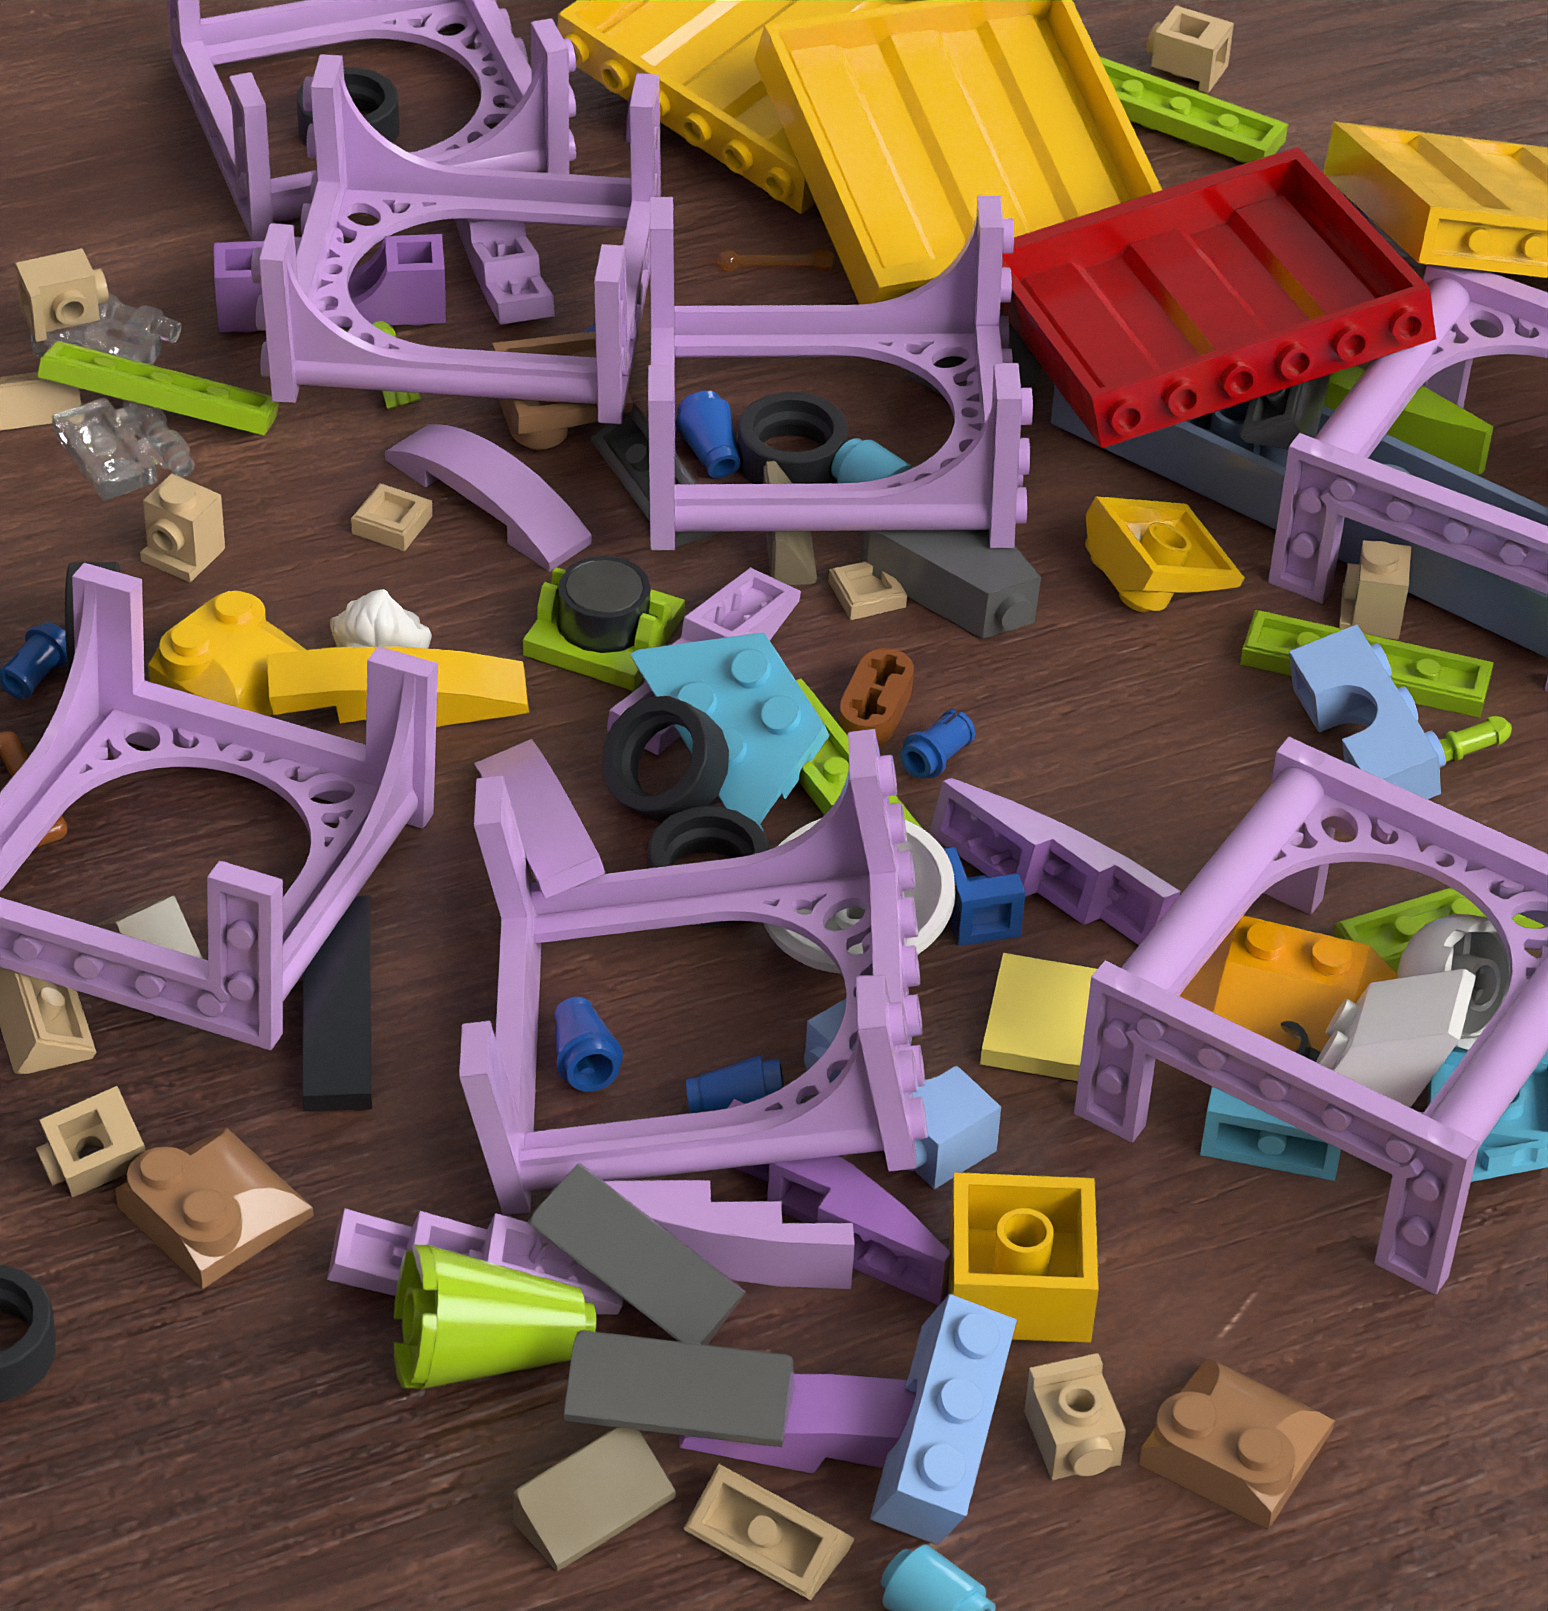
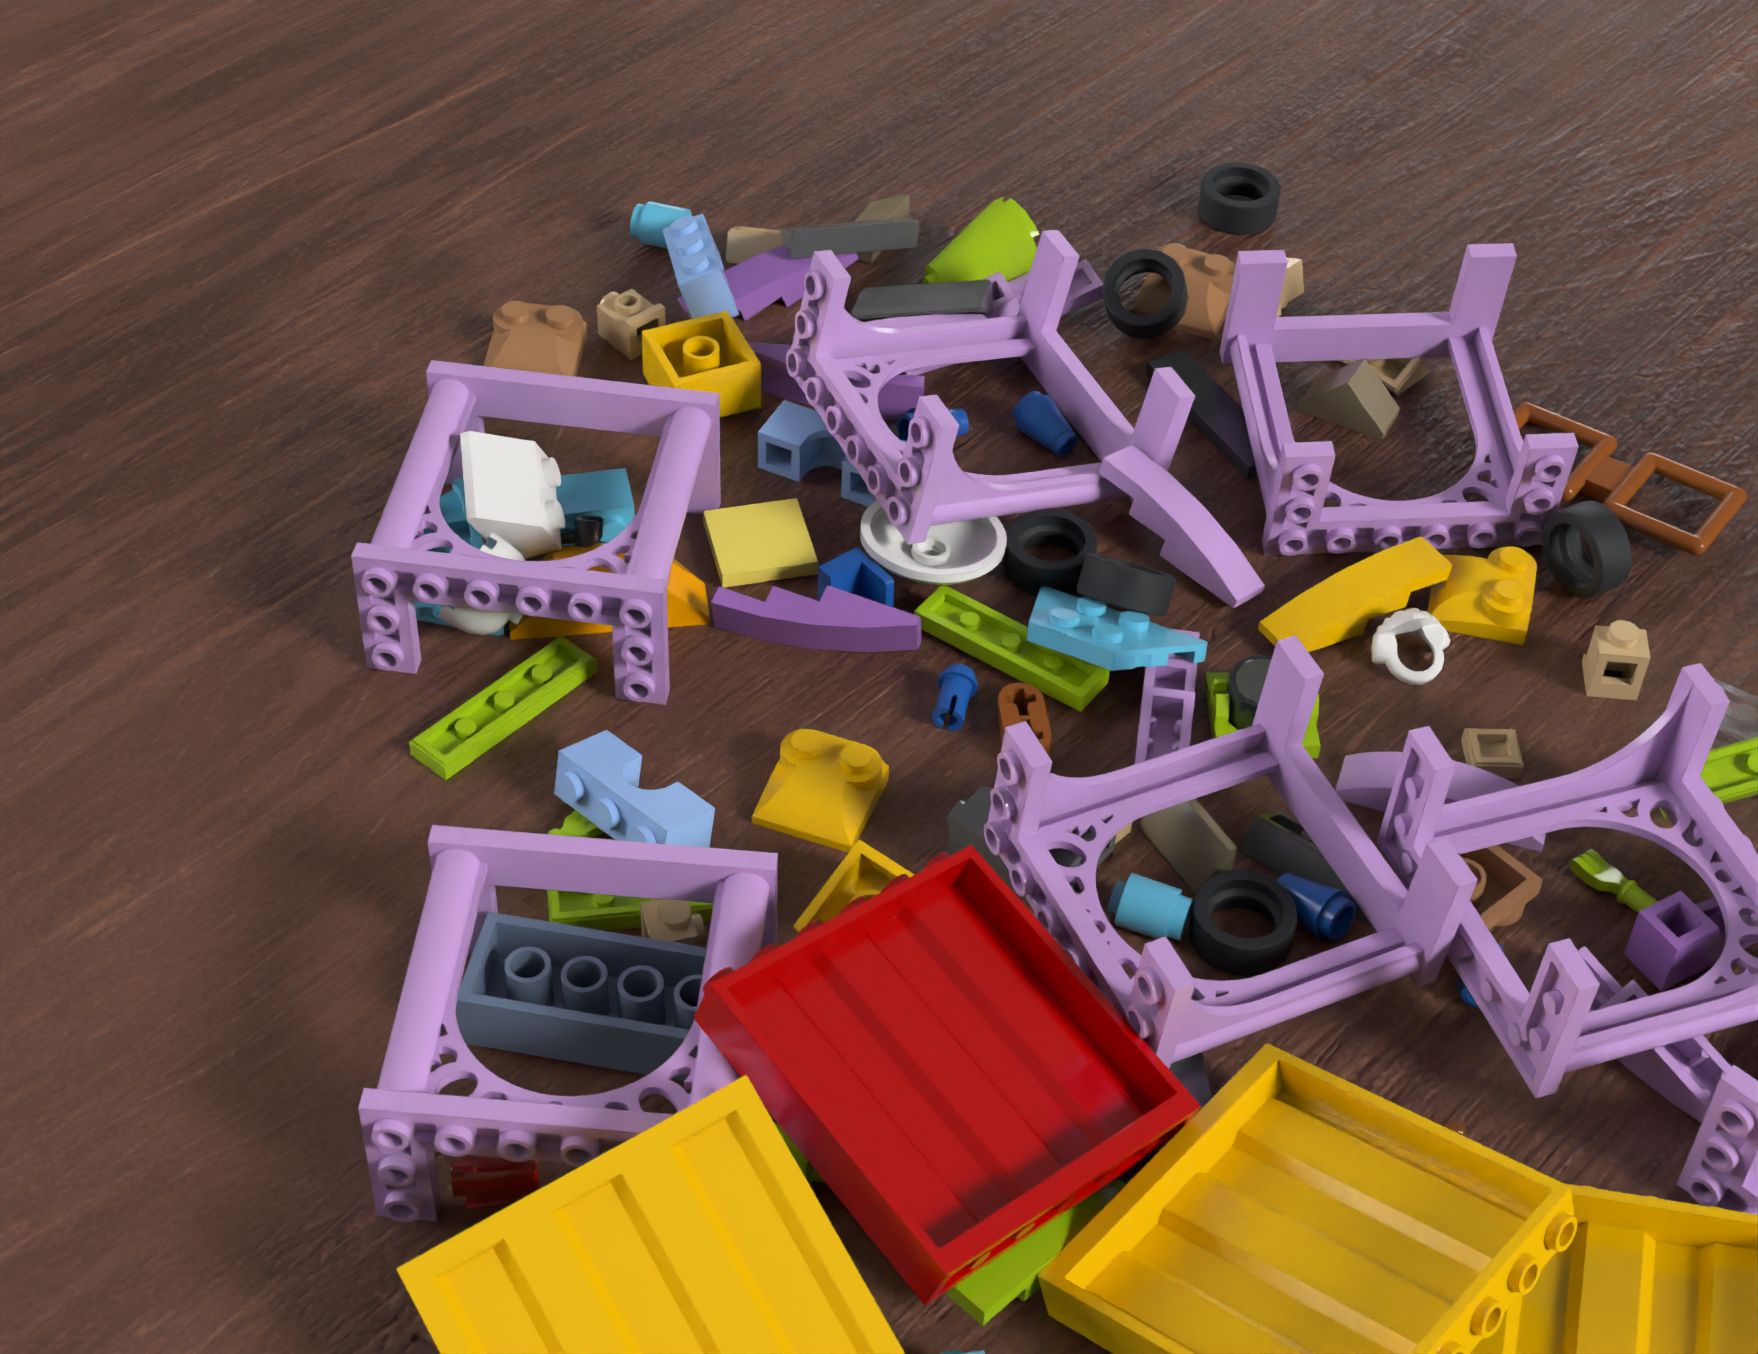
camera: 155 degrees right, 0 degrees up
(302, 1162) = (1136, 263): none -> black tyre
(1139, 706) = (822, 789): none -> yellow slope

